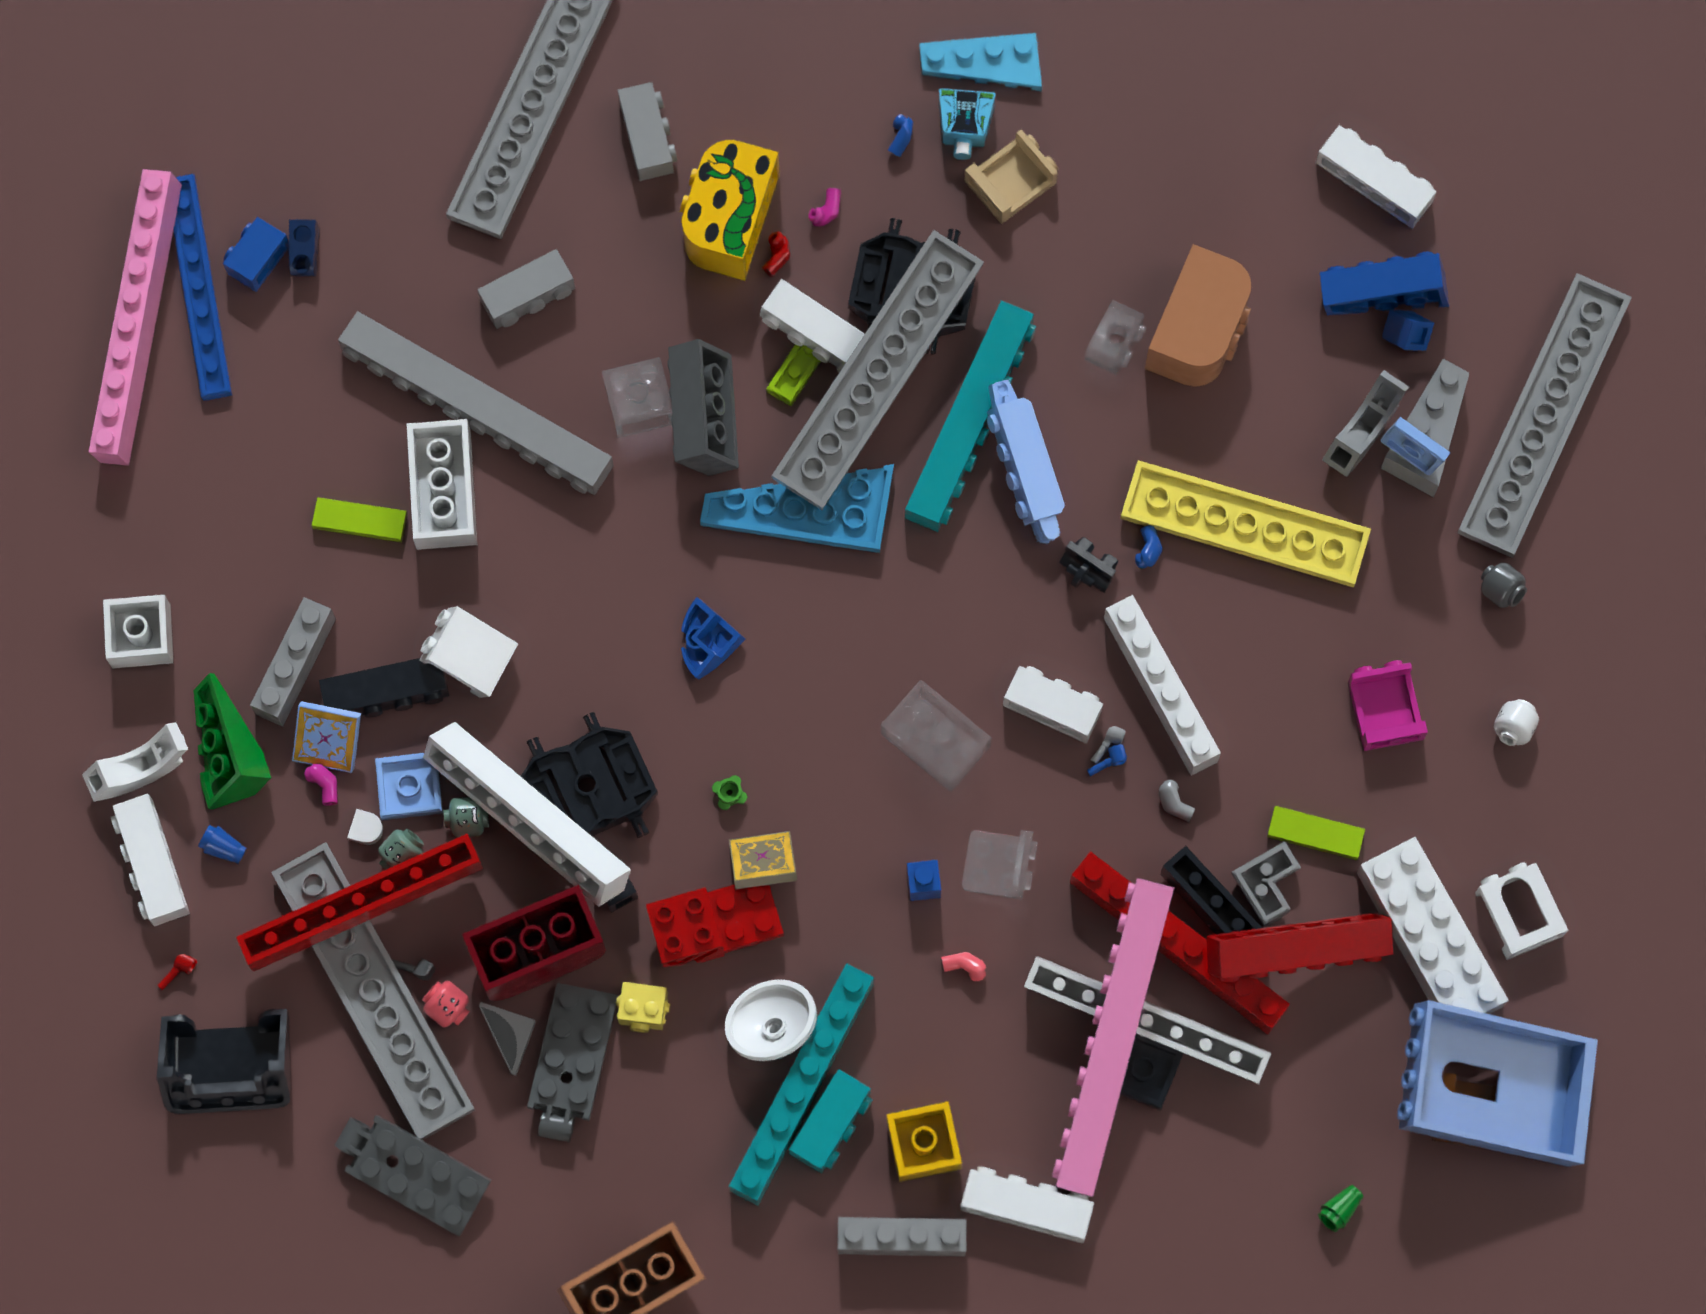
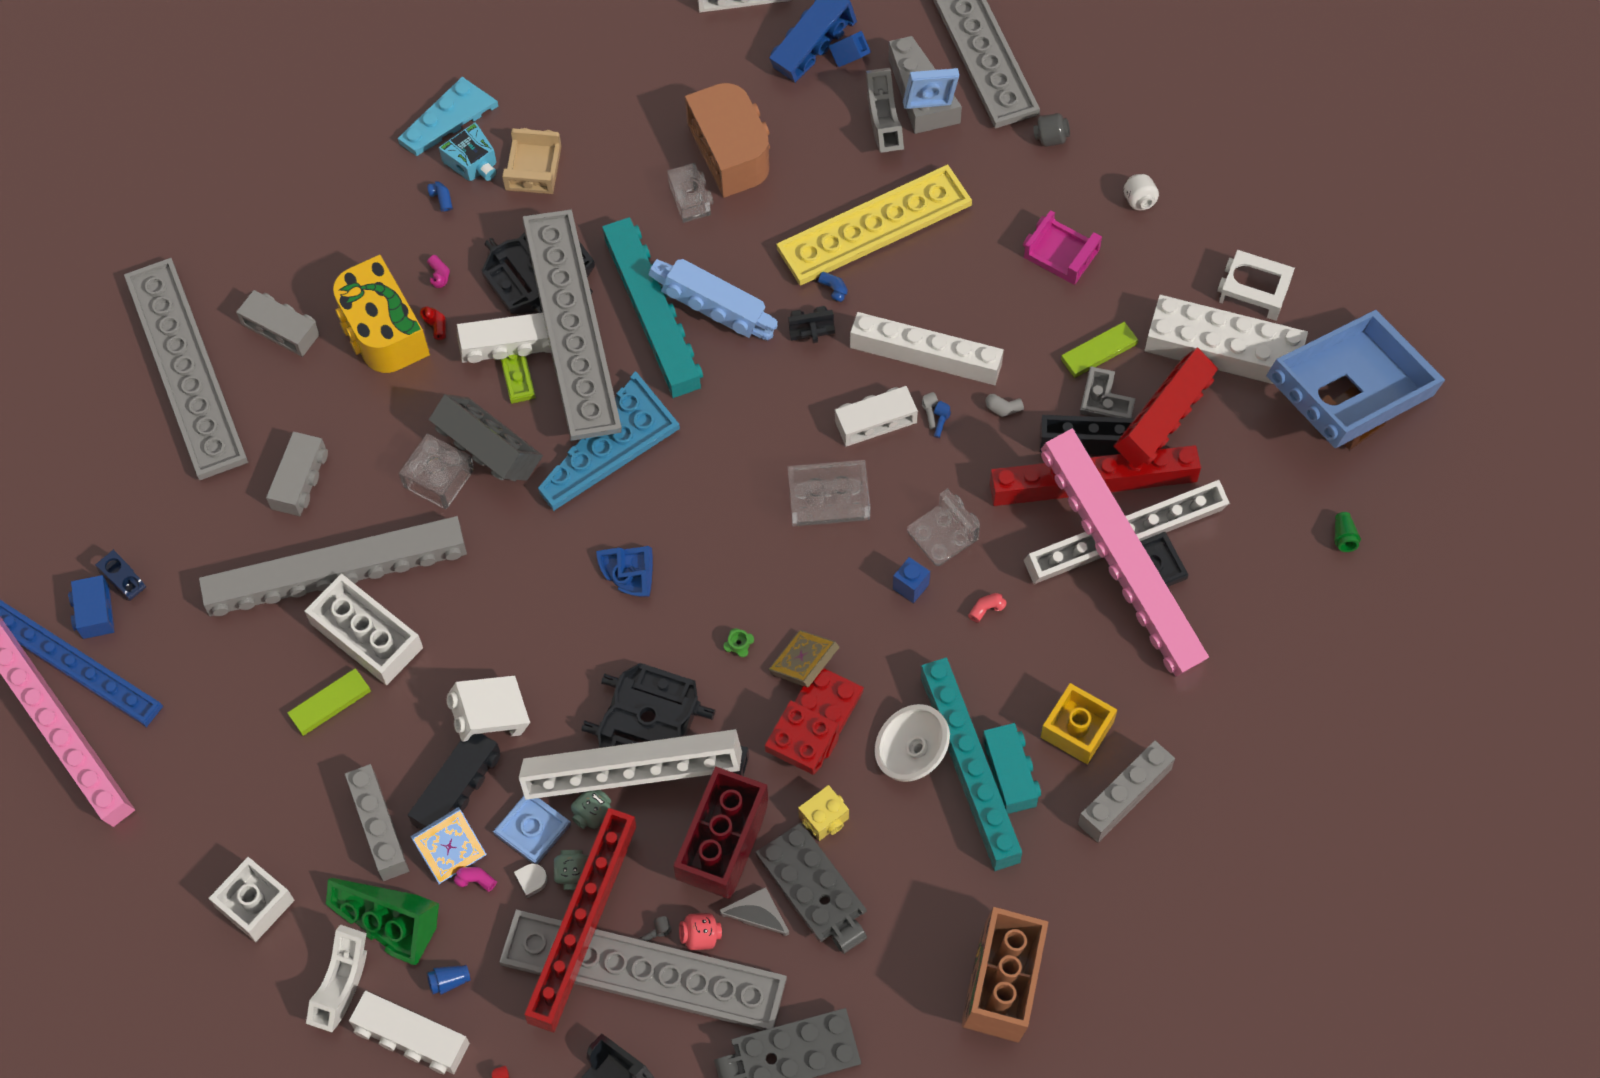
camera: 45 degrees left, 10 degrees down
(1027, 1205) = (1175, 702): white brick -> none

